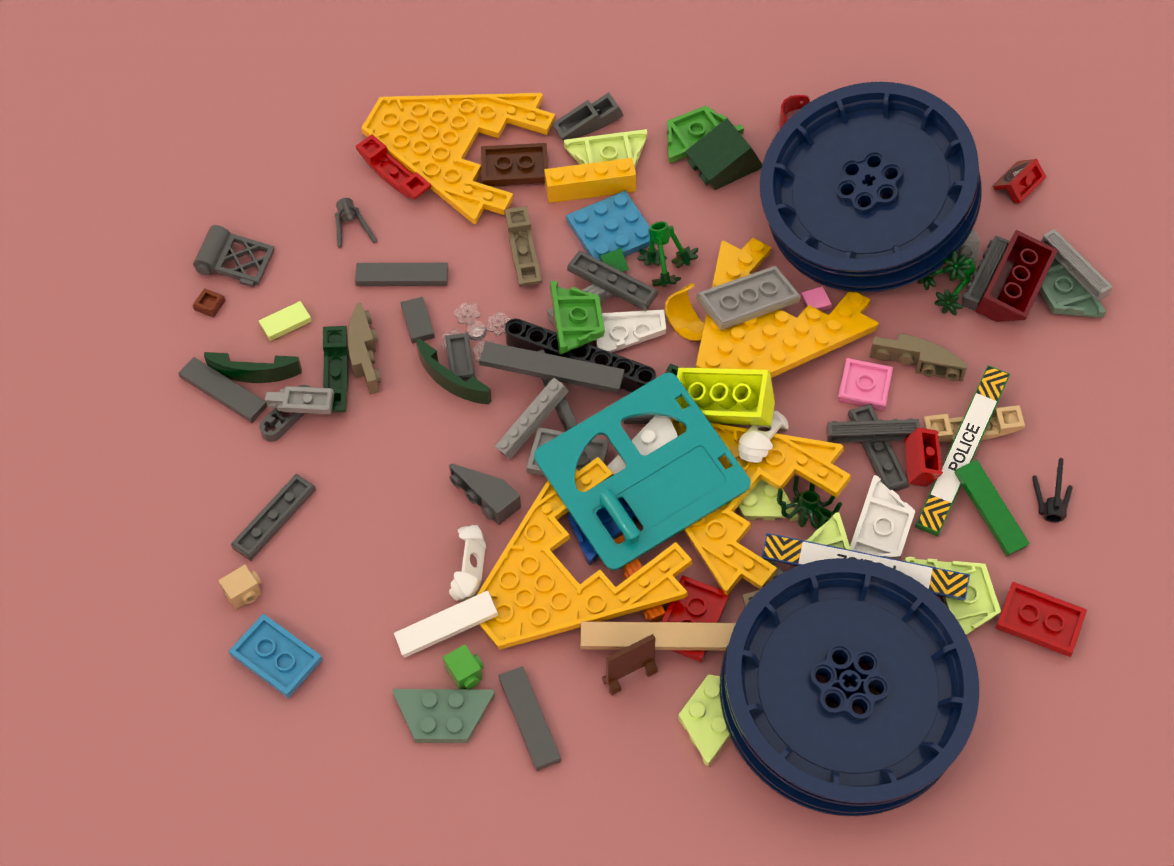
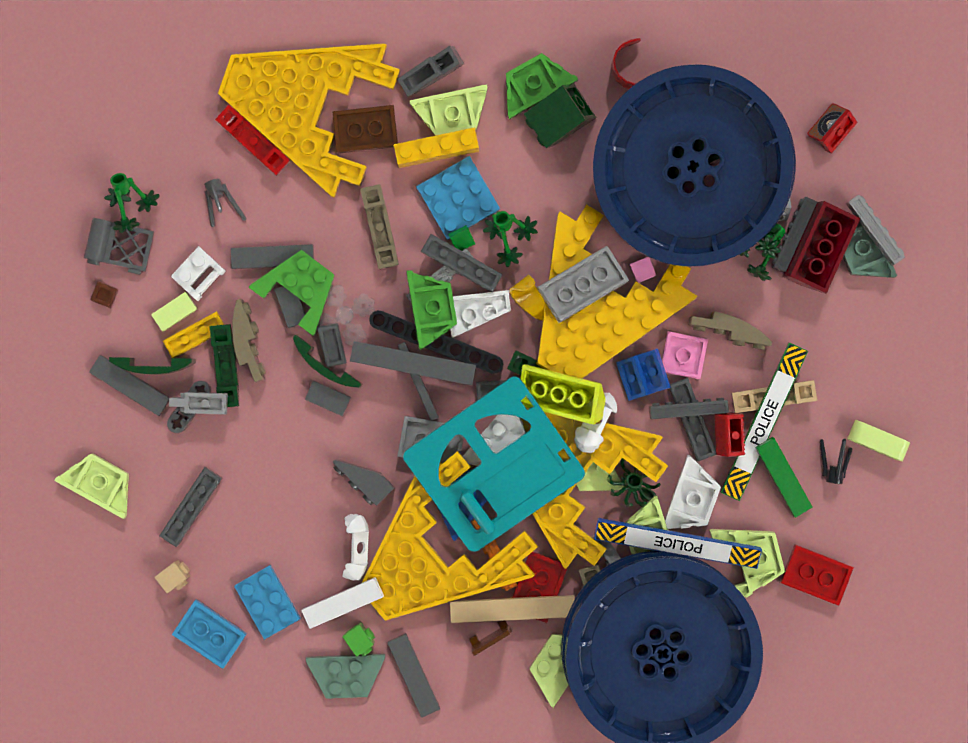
camera: 10 degrees left, 30 degrees up
(168, 484) = (99, 483): none -> yellowish green wing
(247, 189) = (121, 188): none -> plant
(301, 344) = (192, 335): none -> yellow tile
(313, 282) = (192, 270): none -> white plate
(352, 625) = (267, 602): none -> dark azure plate
(434, 291) = (305, 280): none -> bright green wing
(449, 410) = (327, 398): none -> dark grey tile
(531, 418) = (399, 411): light grey piece -> none
(818, 399) = (643, 374): none -> blue slope
(1103, 475) = (878, 440): none -> yellowish green beam

